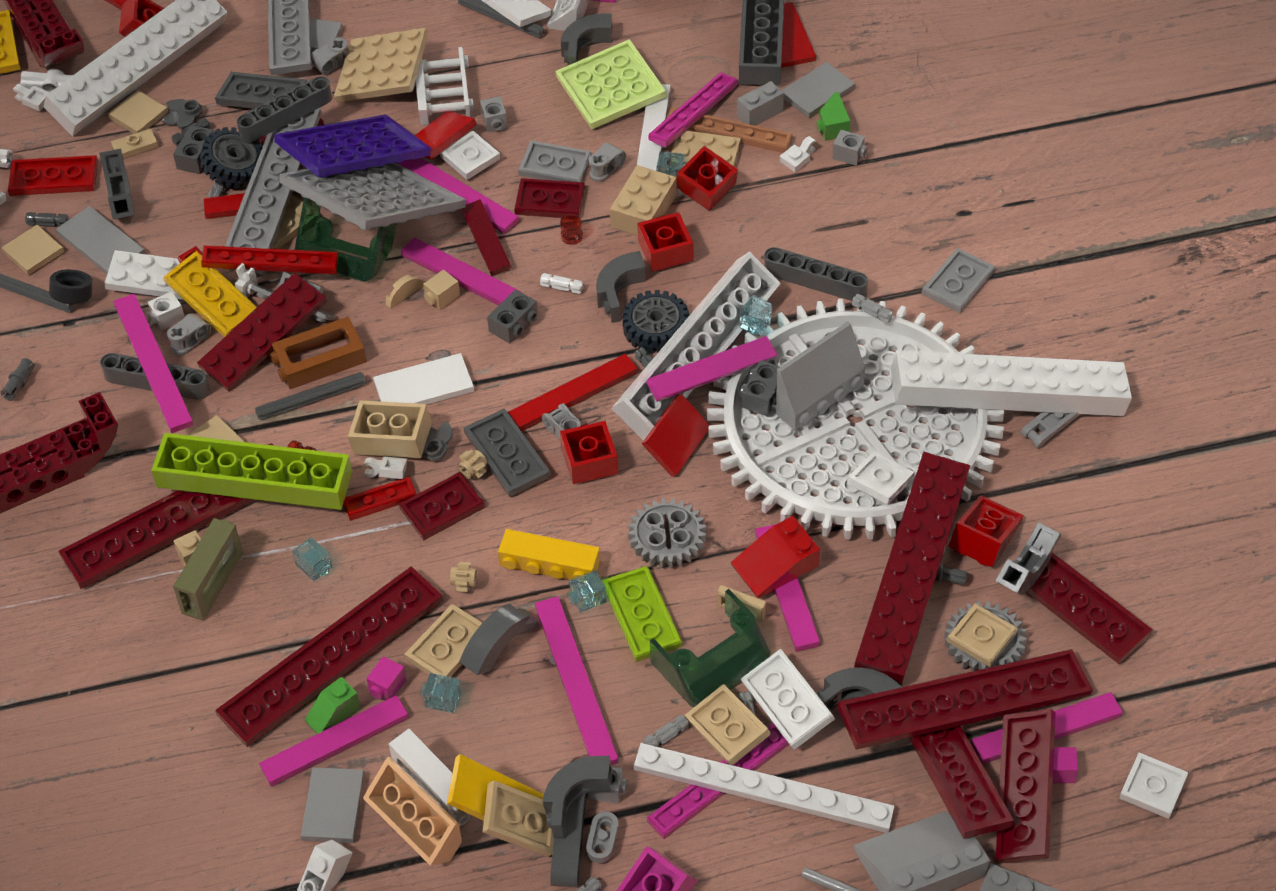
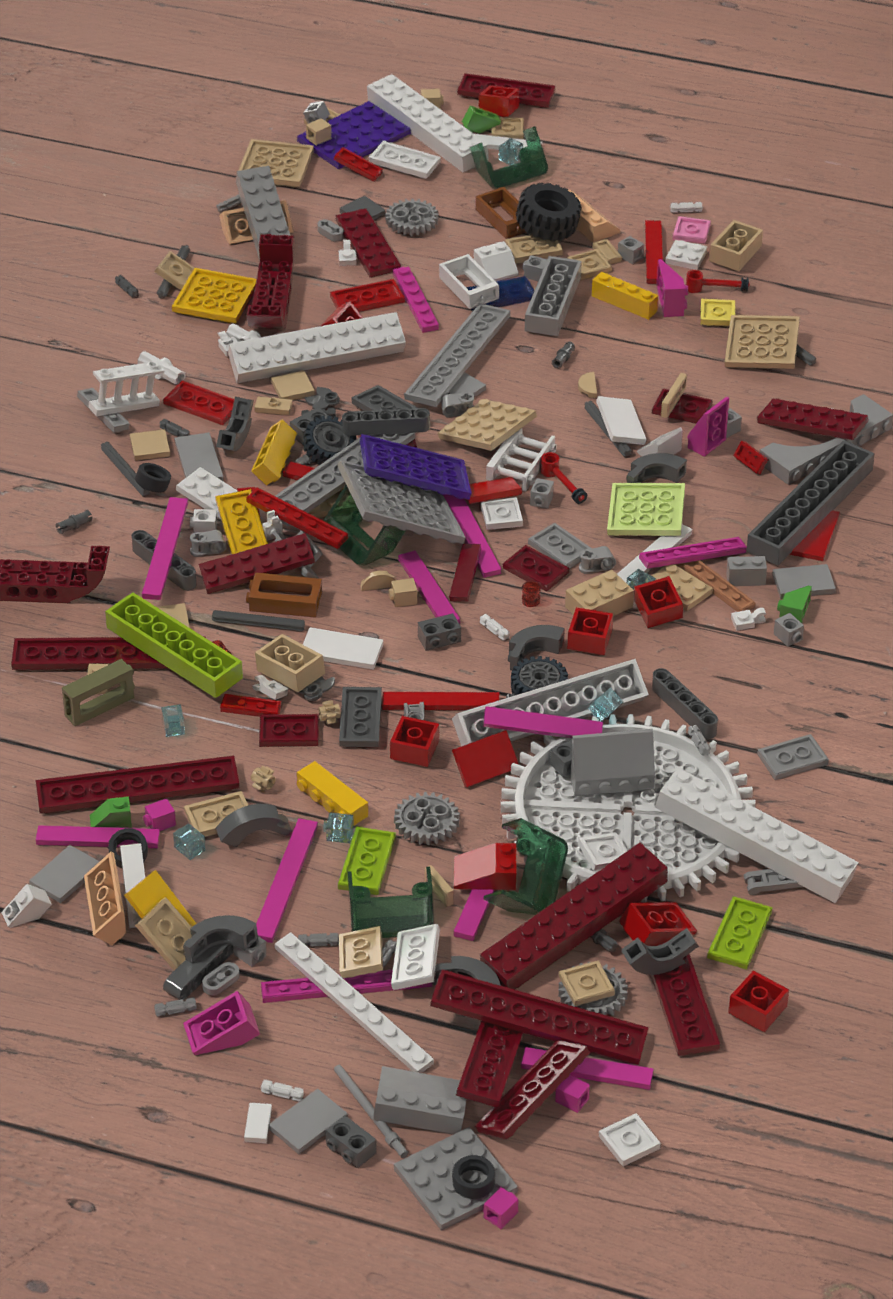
camera: 30 degrees right, 10 degrees down
(181, 196) = (274, 452): none -> yellow brick
(369, 724) = (123, 835): none -> black tyre
(479, 83) = (550, 468): none -> red piece
(837, 534) = (542, 871): none -> clear green windscreen
(1065, 495) = (739, 932): none -> lime tile
(1152, 562) = (758, 1001): none -> red brick

